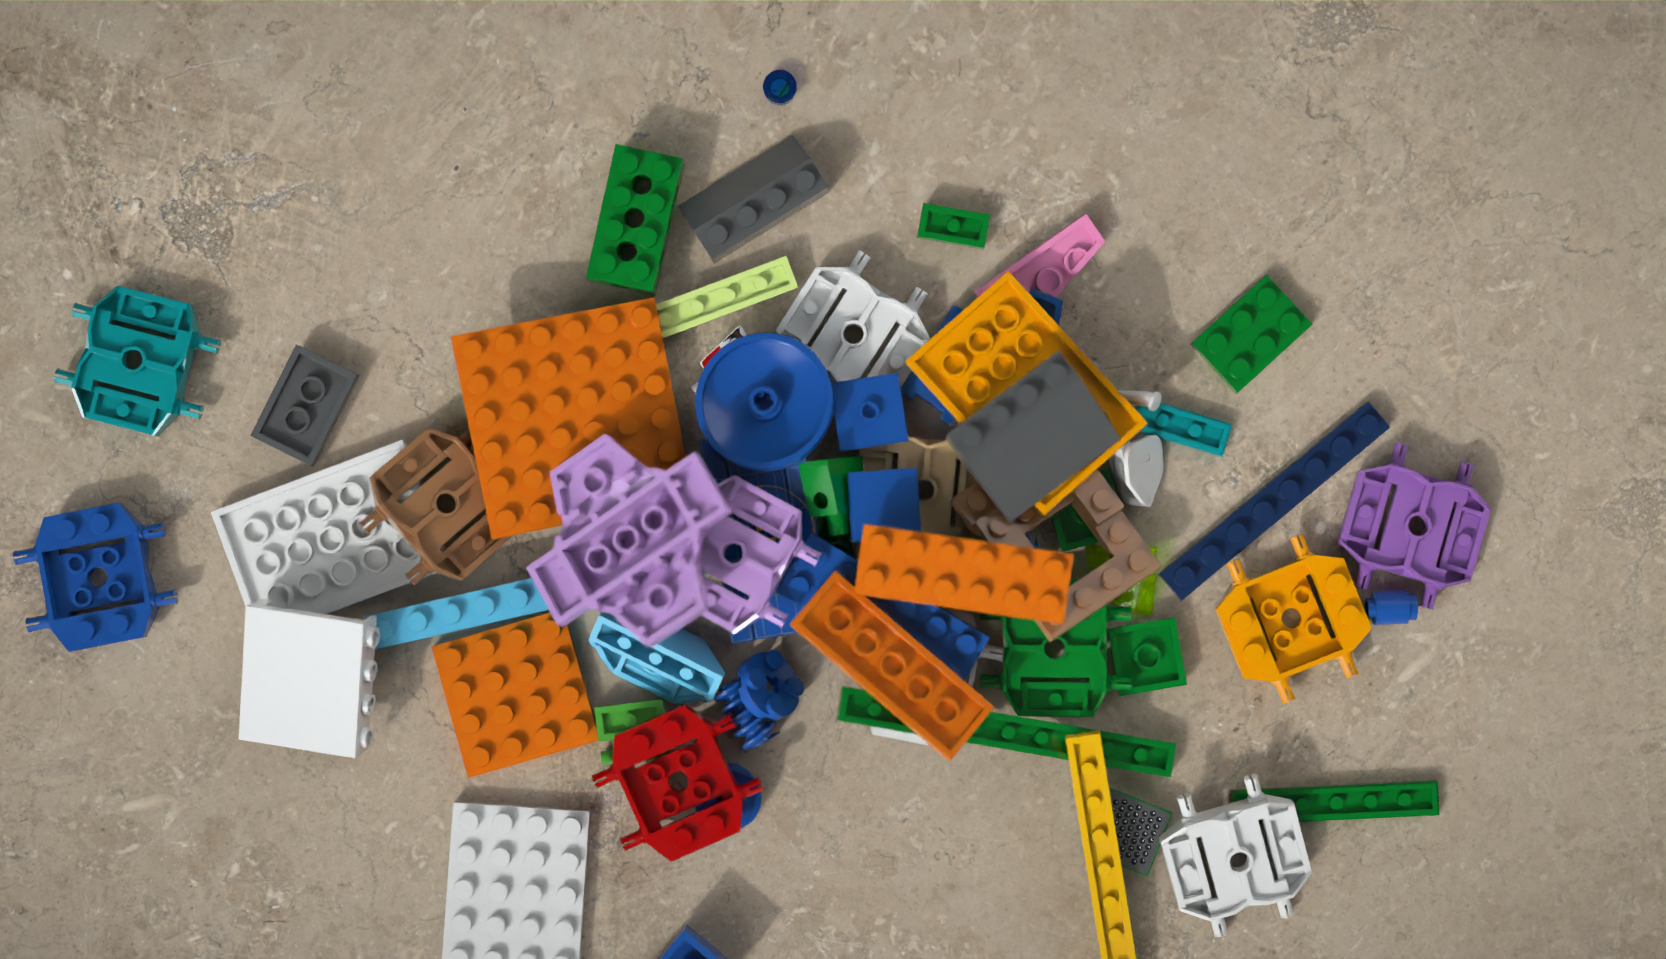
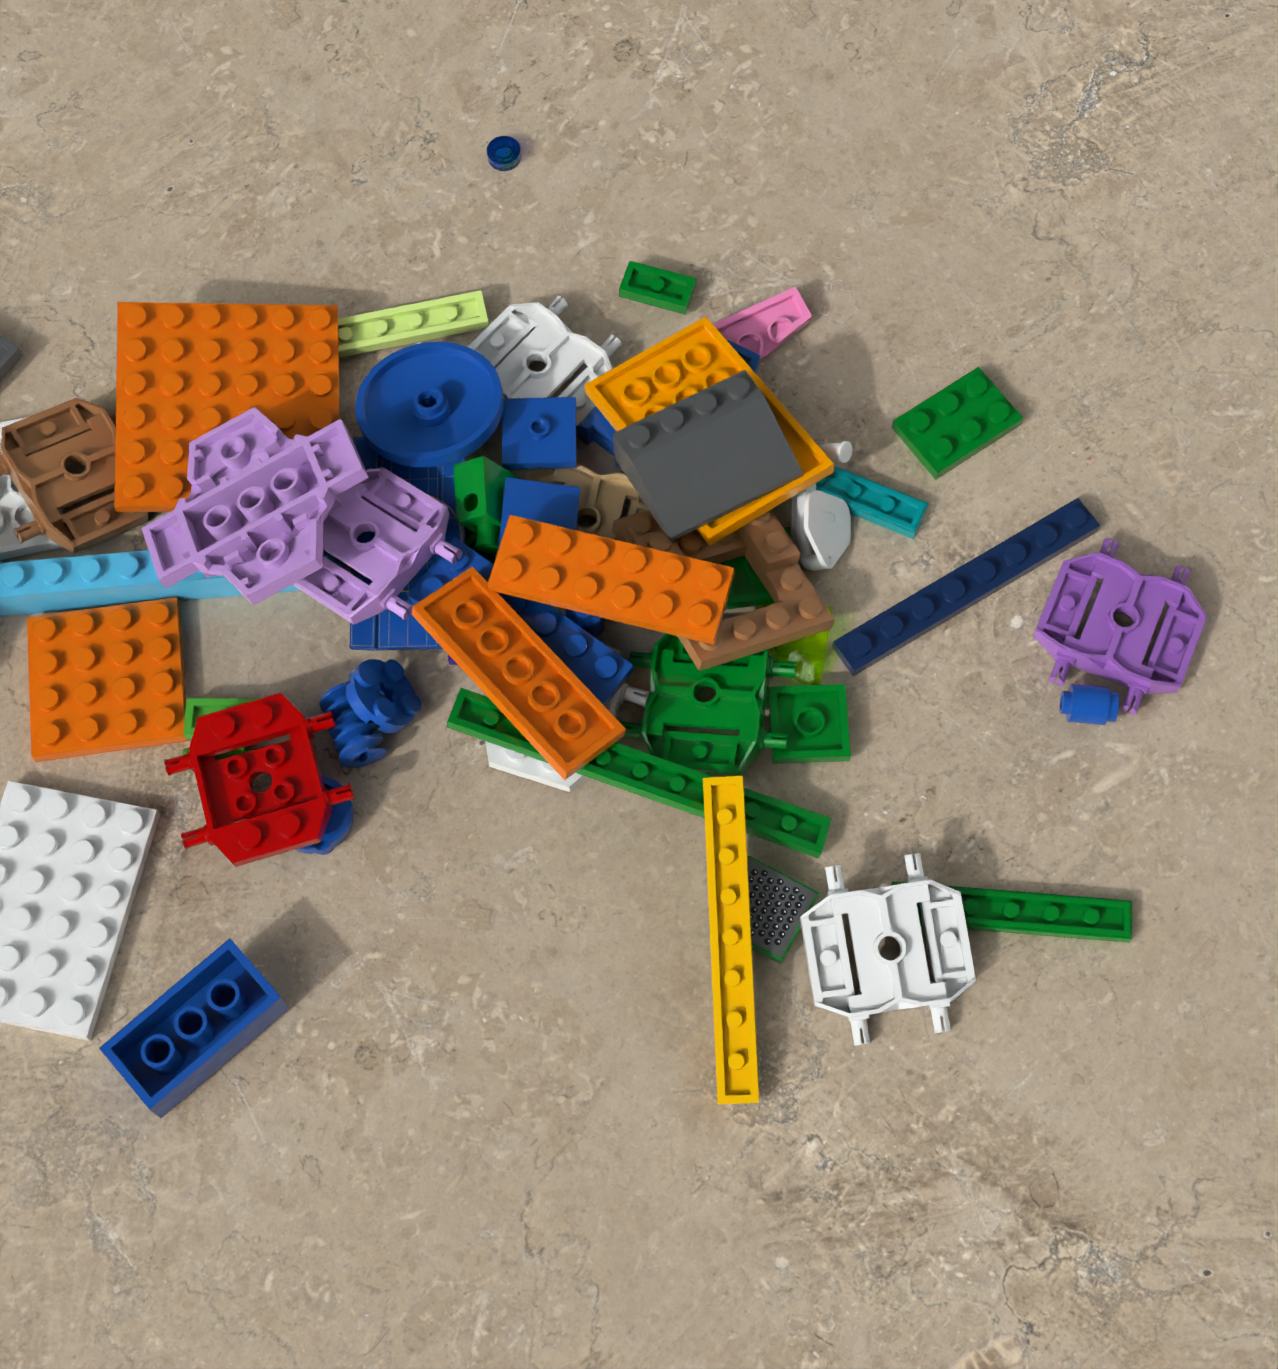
camera: 10 degrees right, 20 degrees down
(619, 203) = (335, 241): green brick -> none
(675, 669) = (262, 649): medium azure wedge -> none
(754, 198) = (461, 245): dark grey slope -> none
(1309, 640) = (973, 674): light orange piece -> none

